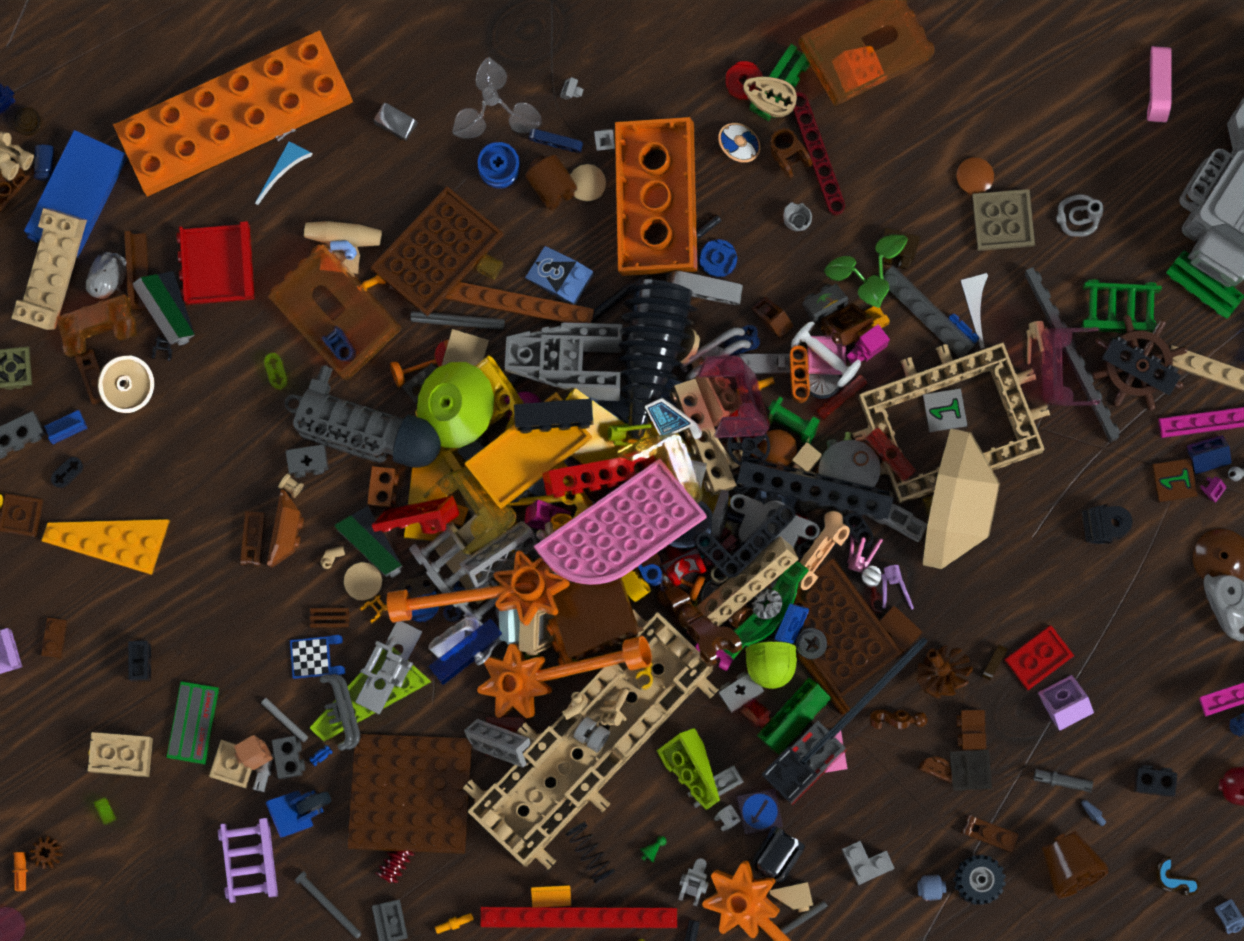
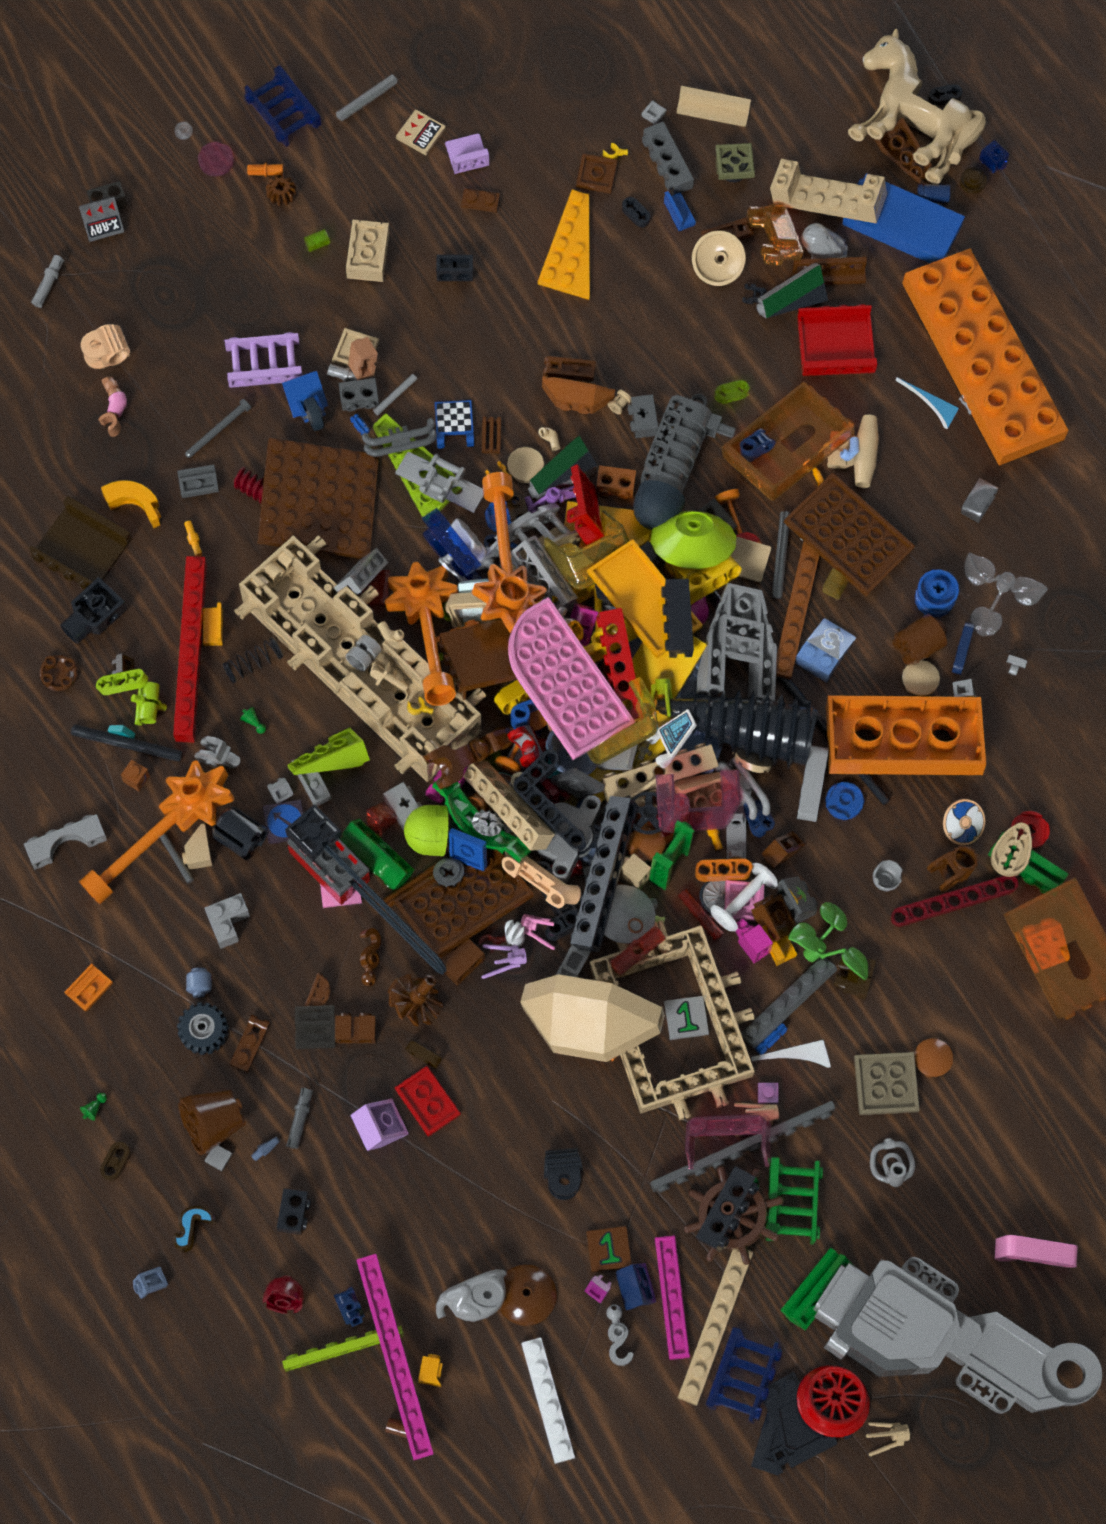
camera: 85 degrees right, 10 degrees down
(193, 723) = (396, 315): dark grey tile -> none
(403, 553) = (551, 496): none -> medium lavender pin
(1016, 332) = (767, 1093): none -> lavender plate
(1107, 855) = (218, 1158): none -> light grey tile

